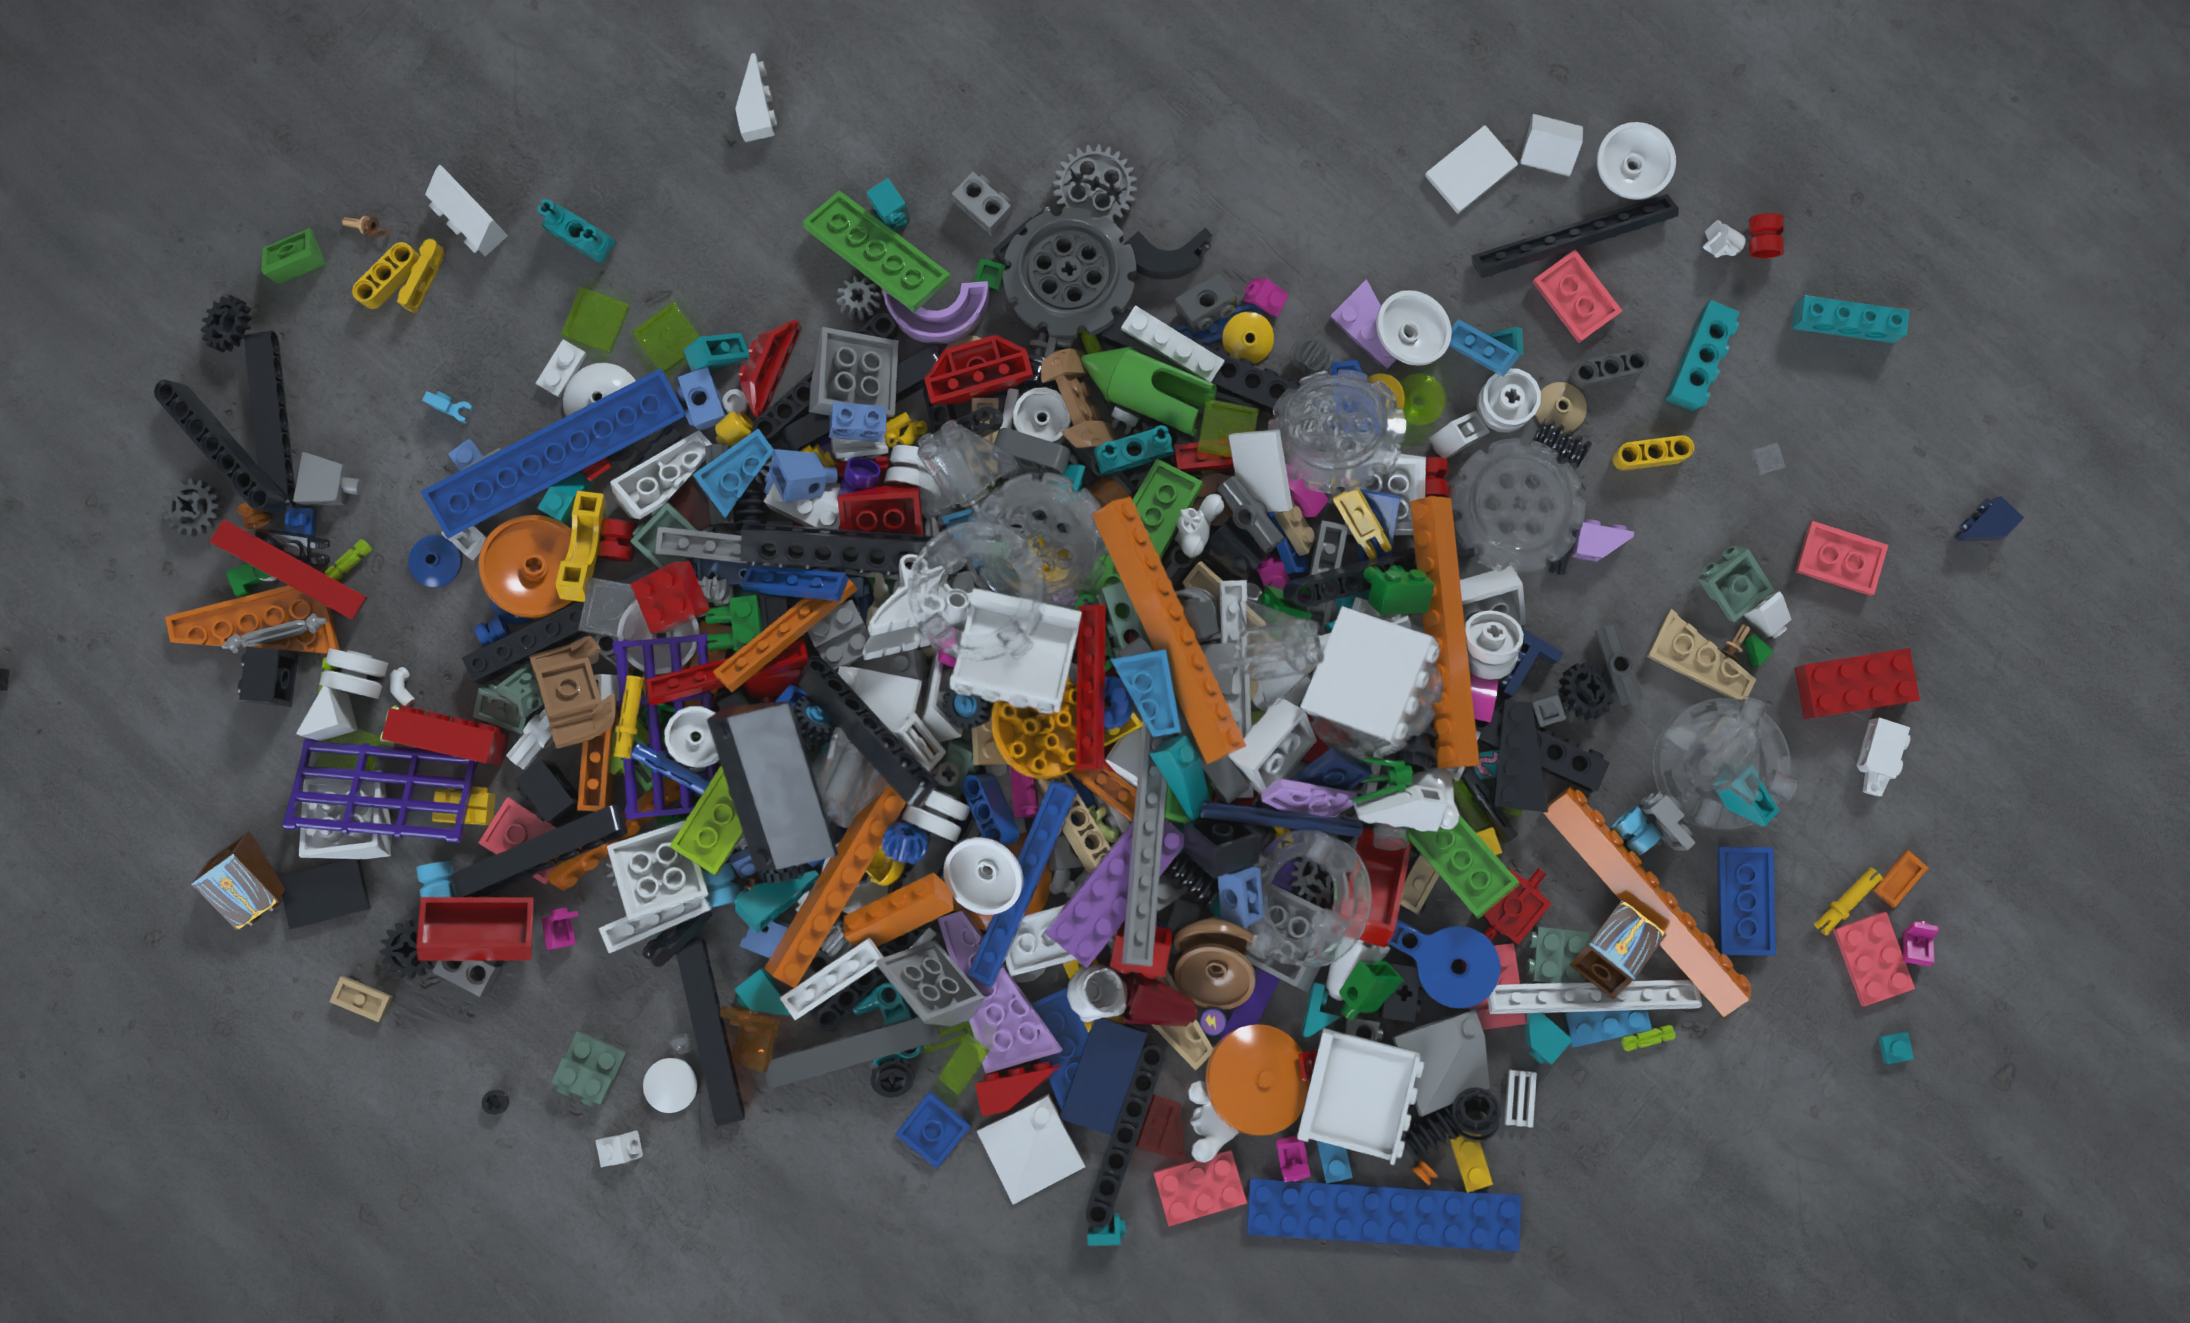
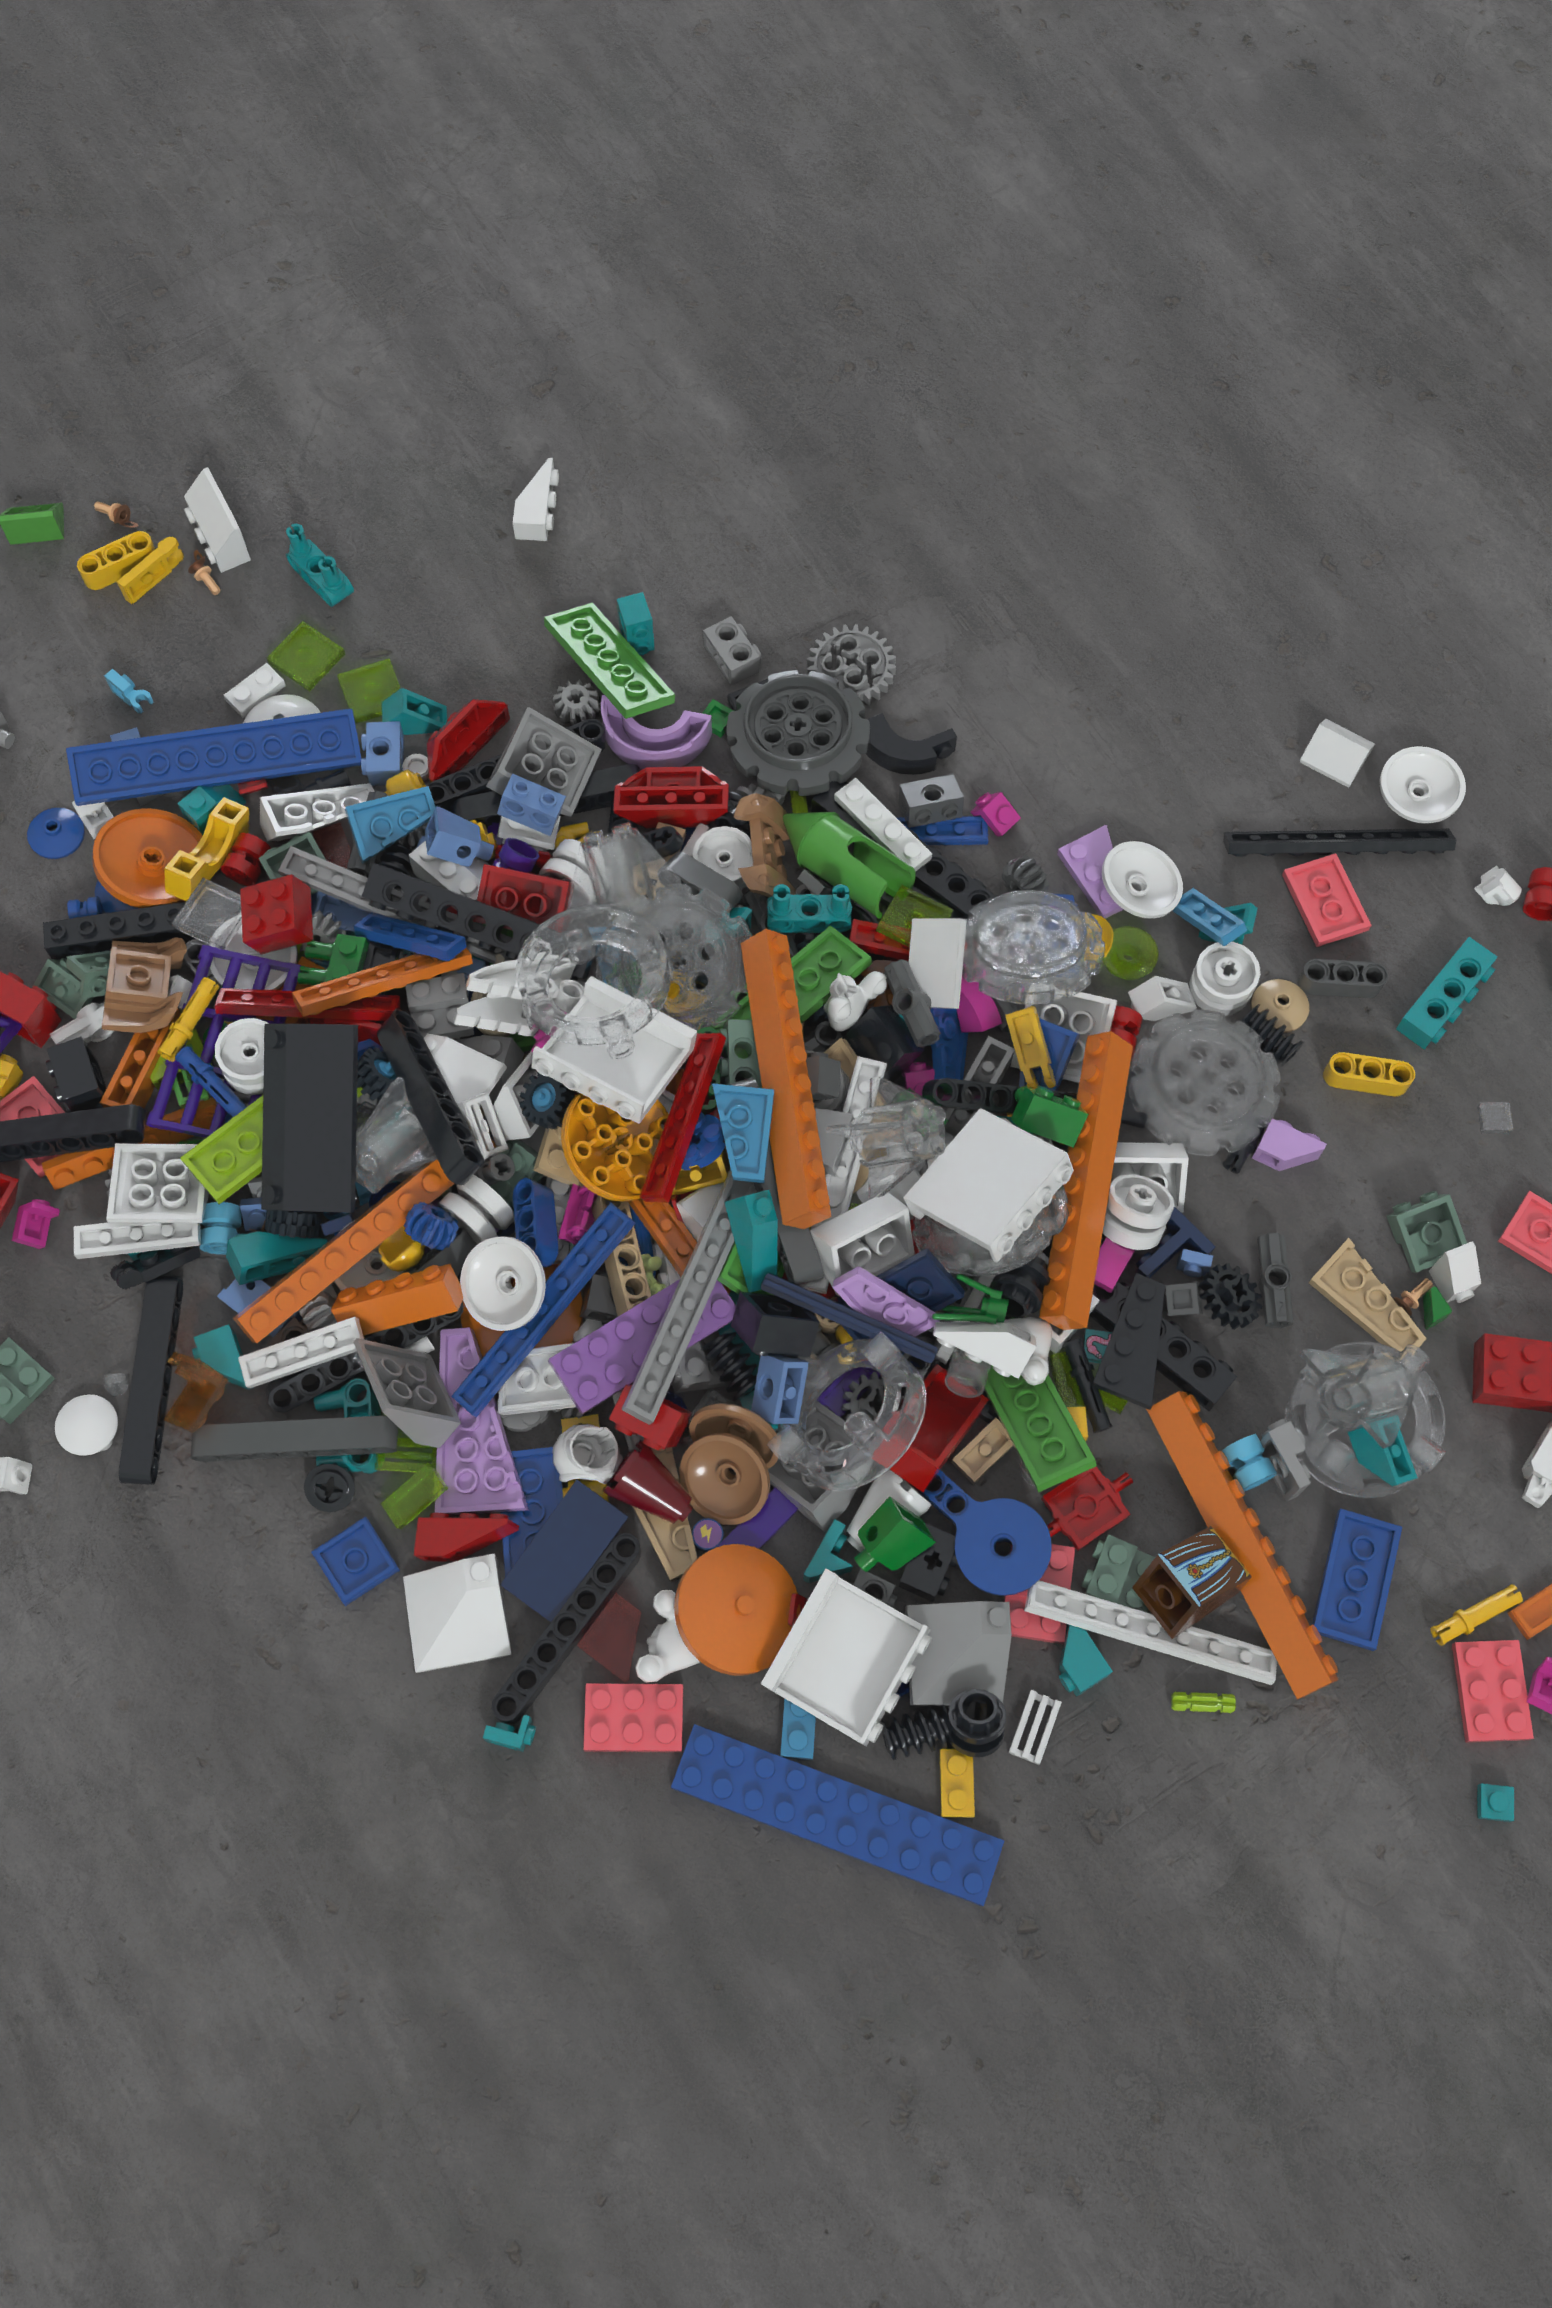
camera: 15 degrees right, 15 degrees down
(470, 264) = (203, 573): none -> light nougat piece
(1236, 330) = (970, 860): yellow dish -> none
(1292, 1159) = (750, 1713): dark pink bracket -> none
(1296, 529) = (958, 1037): tan plate -> none
(1424, 1172) = (898, 1777): orange bush -> none
(1471, 169) = (1246, 753): white tile -> none
(1548, 670) = (1194, 1263): none -> medium blue plate
(1599, 1026) = (1155, 1671): dark azure wing -> none

